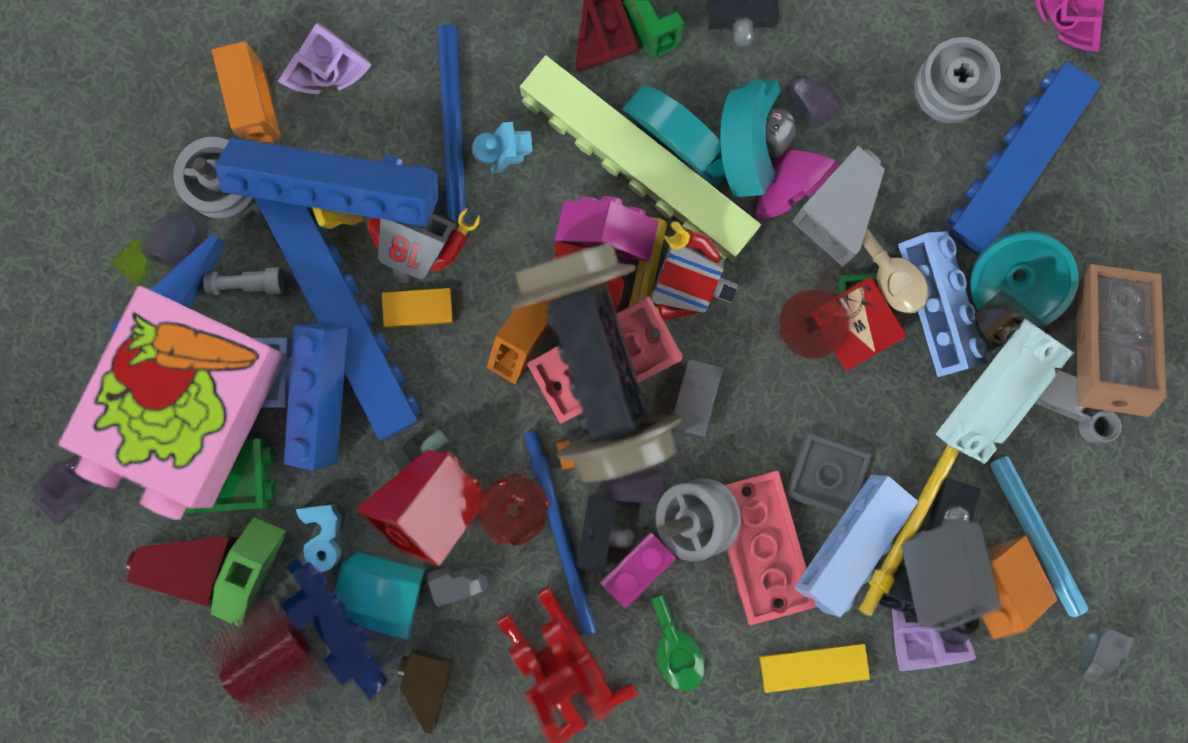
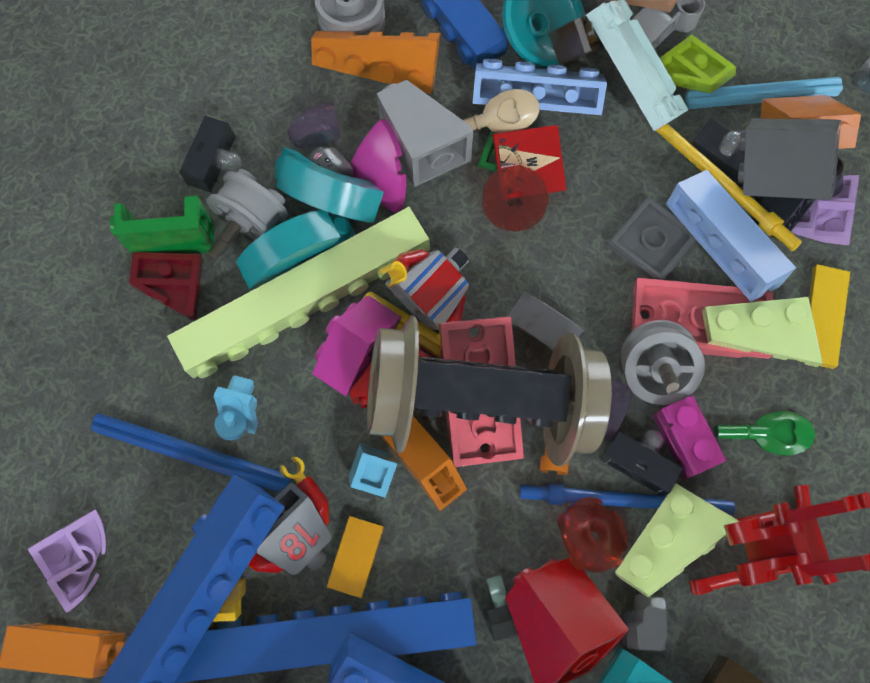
camera: 70 degrees left, 10 degrees down
(494, 291) = (372, 470): none -> medium azure brick
(535, 582) = (672, 540): none -> yellowish green wing
(694, 72) = (245, 209): none -> light grey wheel
(774, 612) = (768, 327): none -> yellowish green wing
(913, 142) = (379, 56): none -> orange wing
(1036, 454) = (697, 66): none -> lime wing

